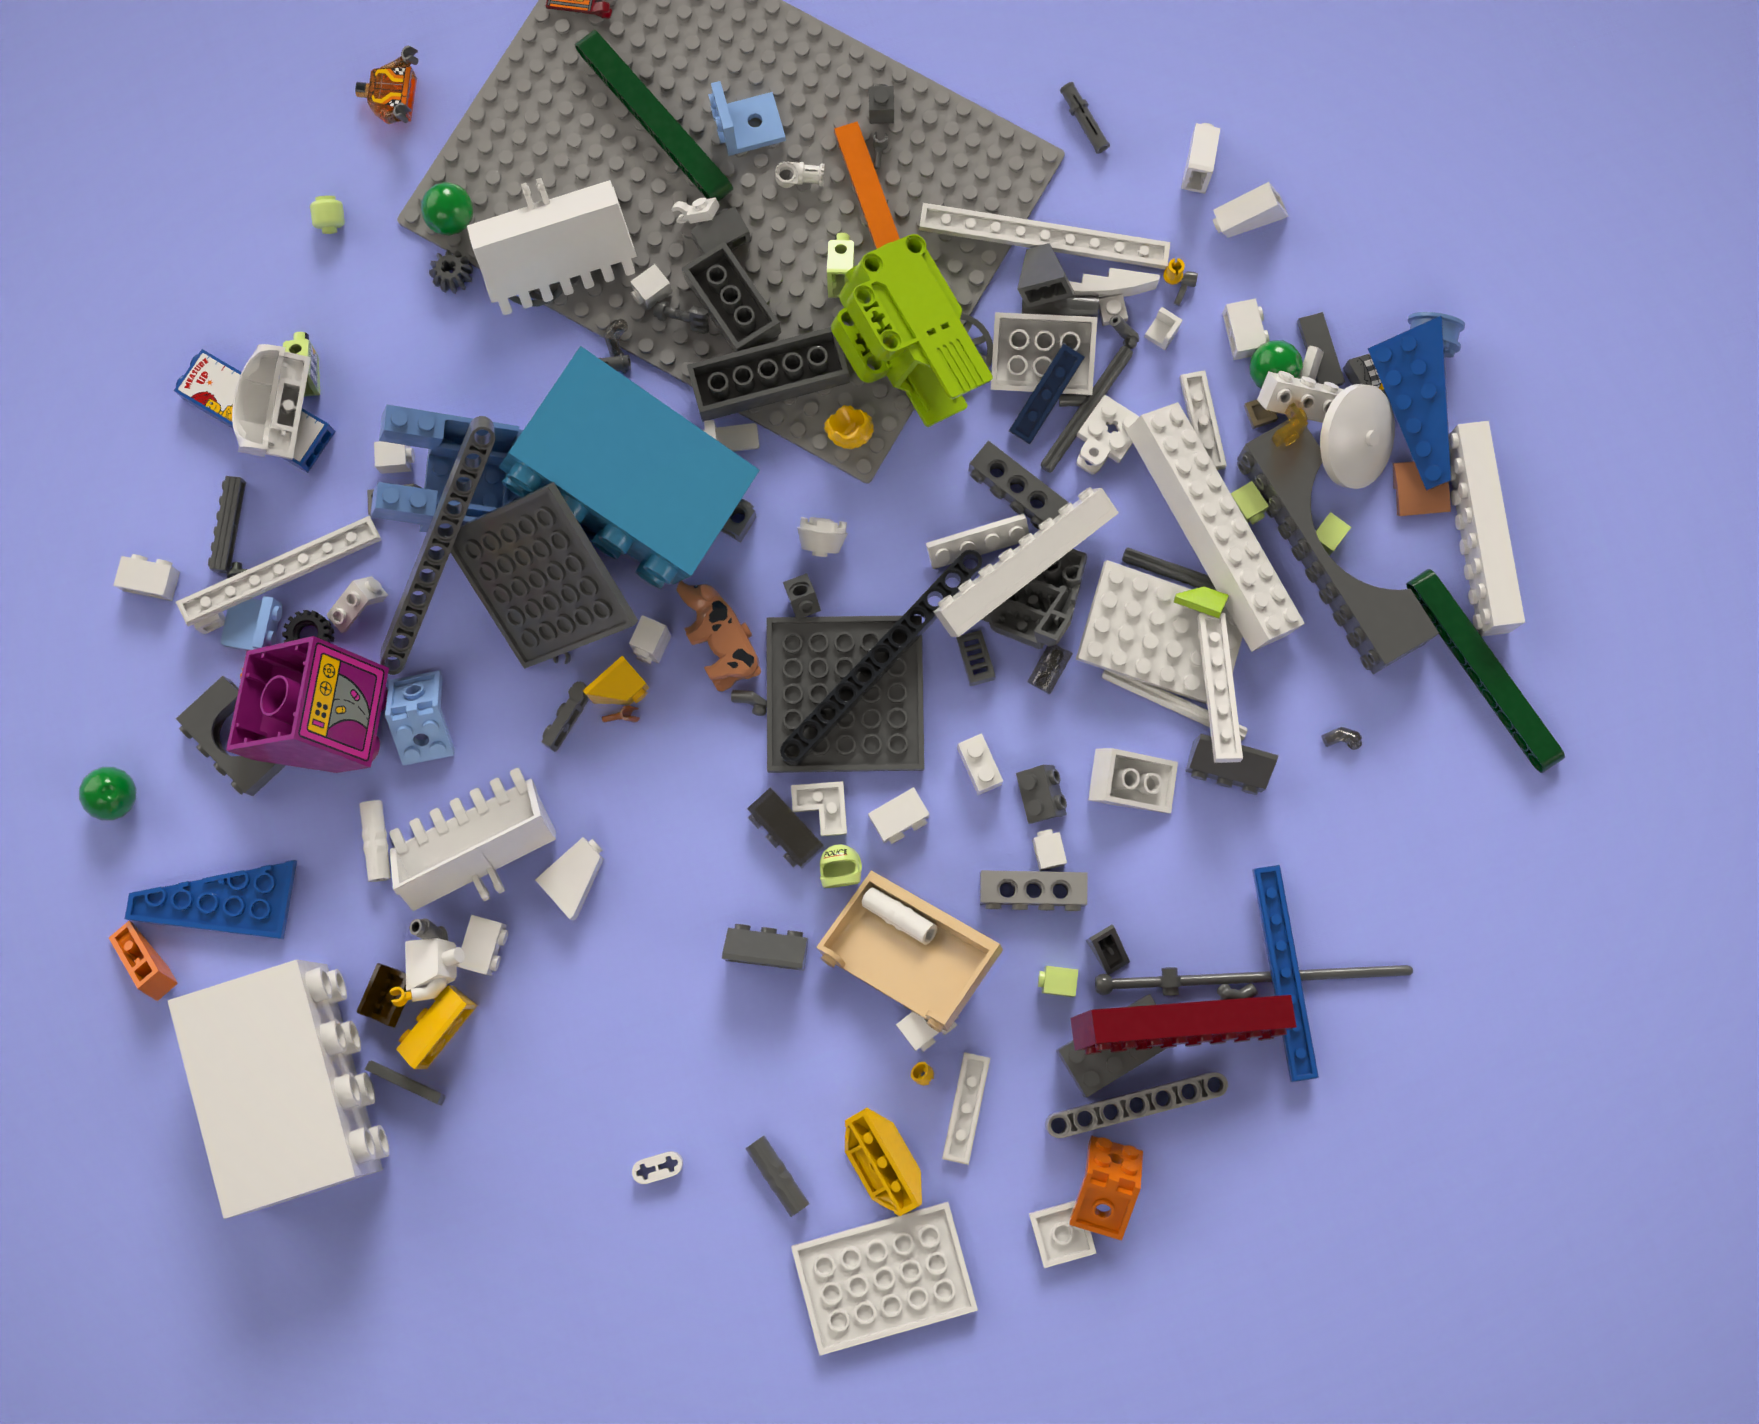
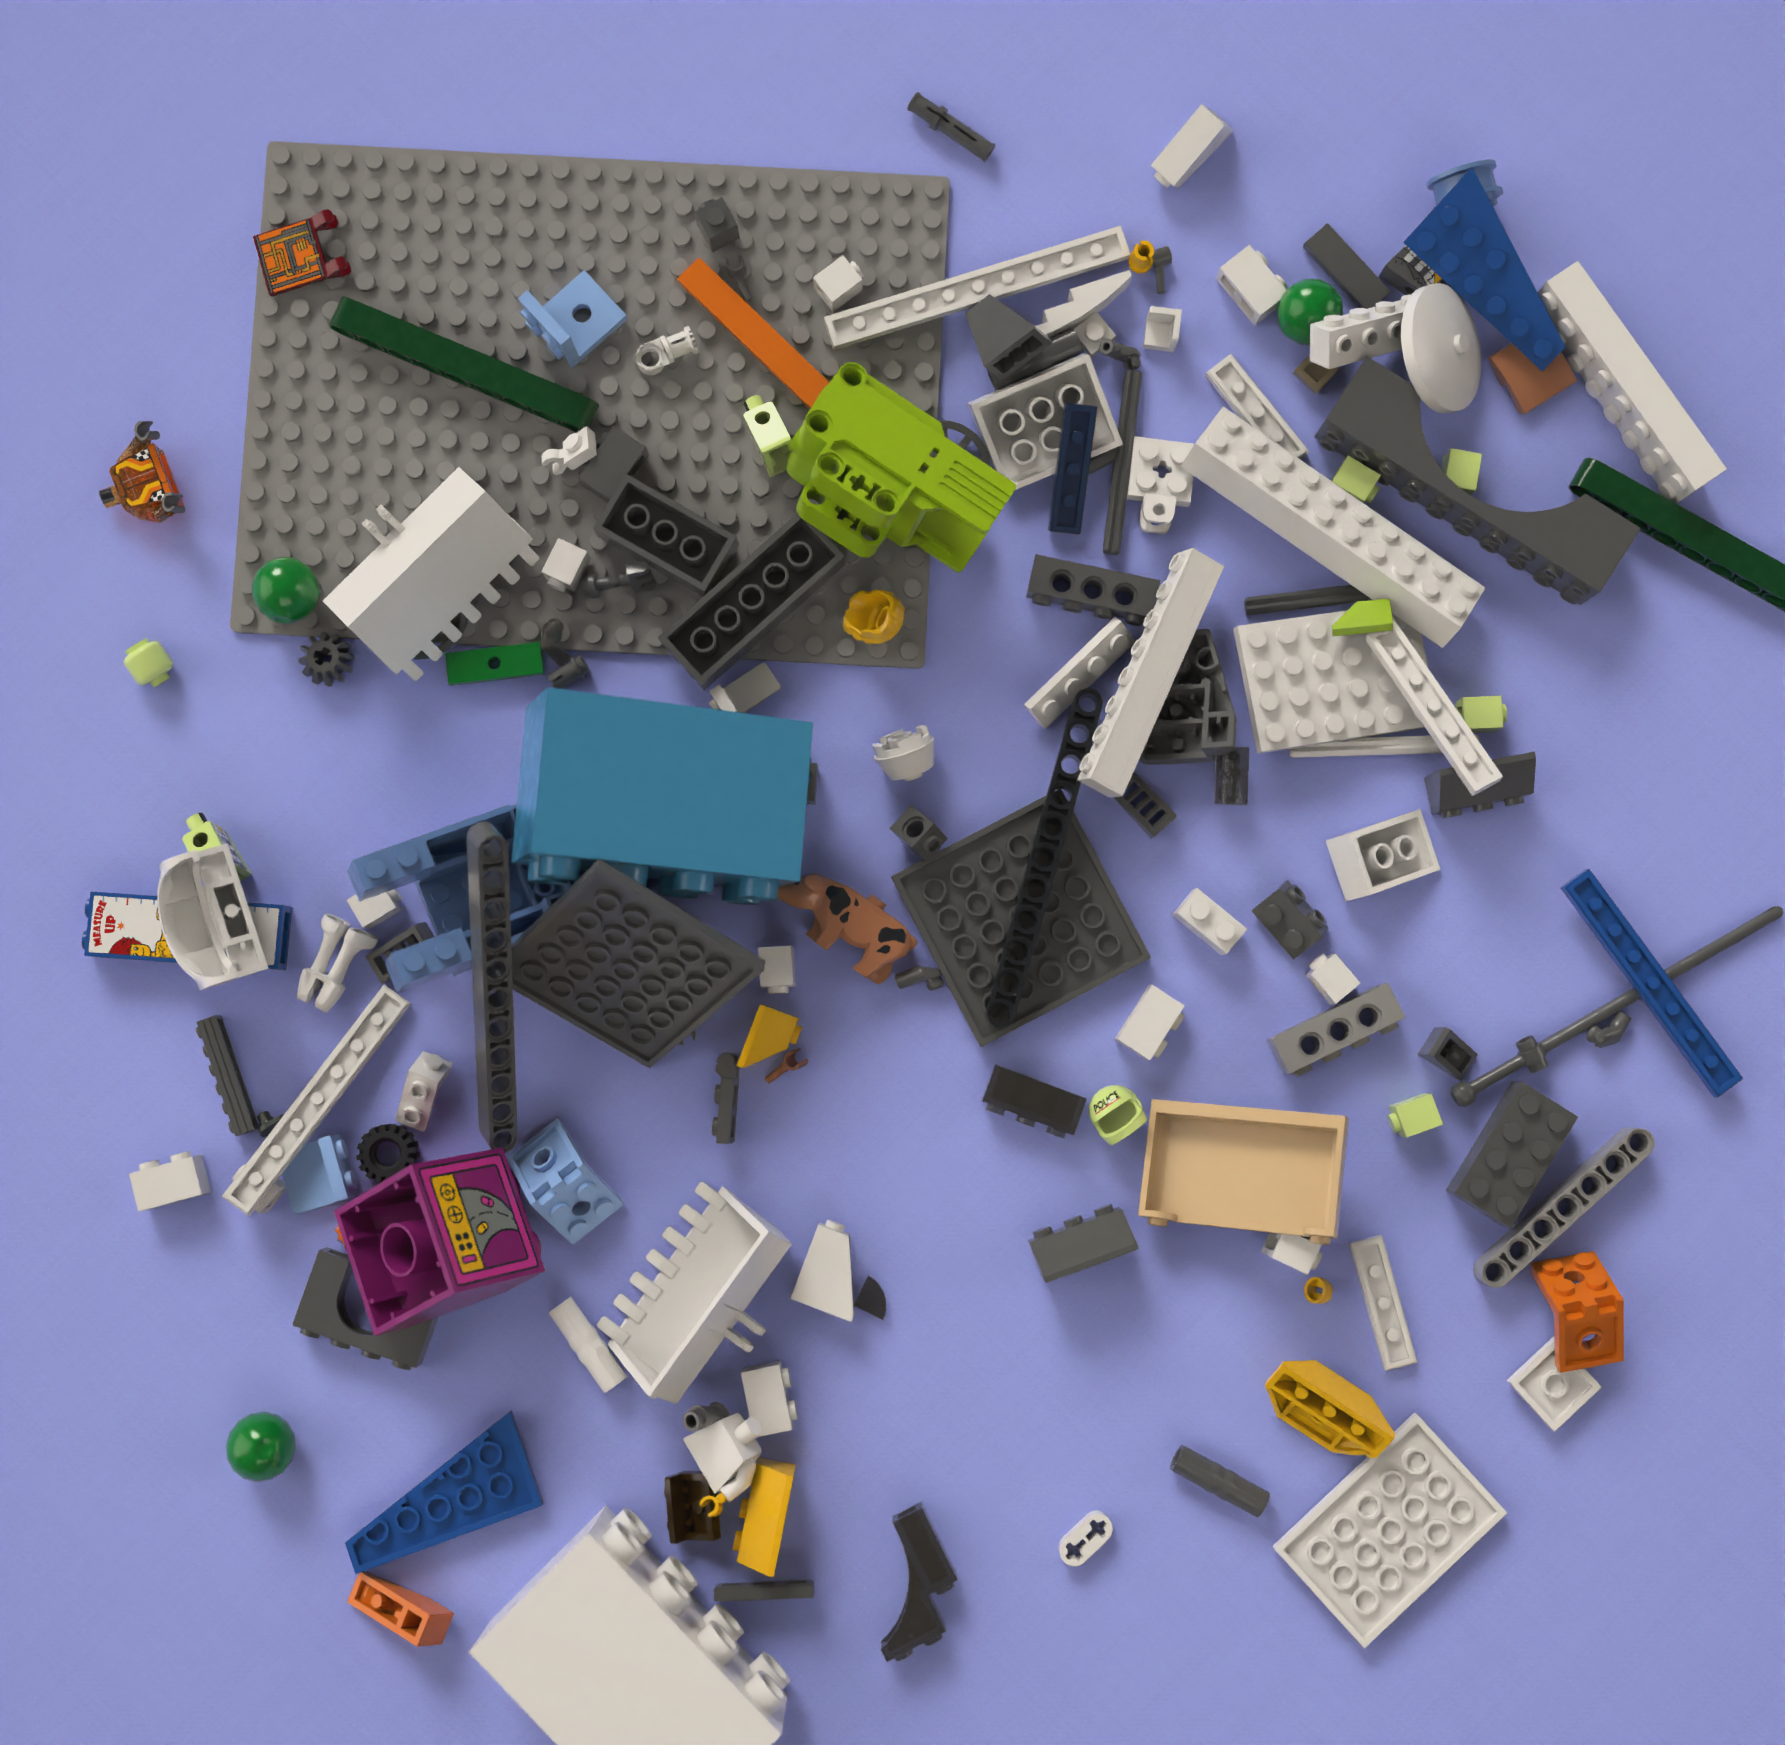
camera: 30 degrees left, 5 degrees up
(323, 491) = (333, 987): none -> white piece
(530, 1129) = (928, 1573): none -> clear smoke arch
(552, 327) = (475, 664): none -> green tile
(595, 913) = (872, 1298): none -> clear smoke tile
(828, 800) = (1064, 1045): white plate -> none
(899, 916) = (1211, 1135): white axle -> none
(946, 185) = (838, 282): none -> white brick
(1182, 1024) = (1580, 1100): dark red brick -> none
(1201, 158) = (1106, 110): white slope -> none
(1257, 714) = (1482, 713): none -> yellowish green brick
(1291, 431) = (1375, 366): clear yellow bracket -> none
(1312, 362) = (1346, 289): white tile -> none
(1345, 735) = (1592, 688): clear smoke arm -> none

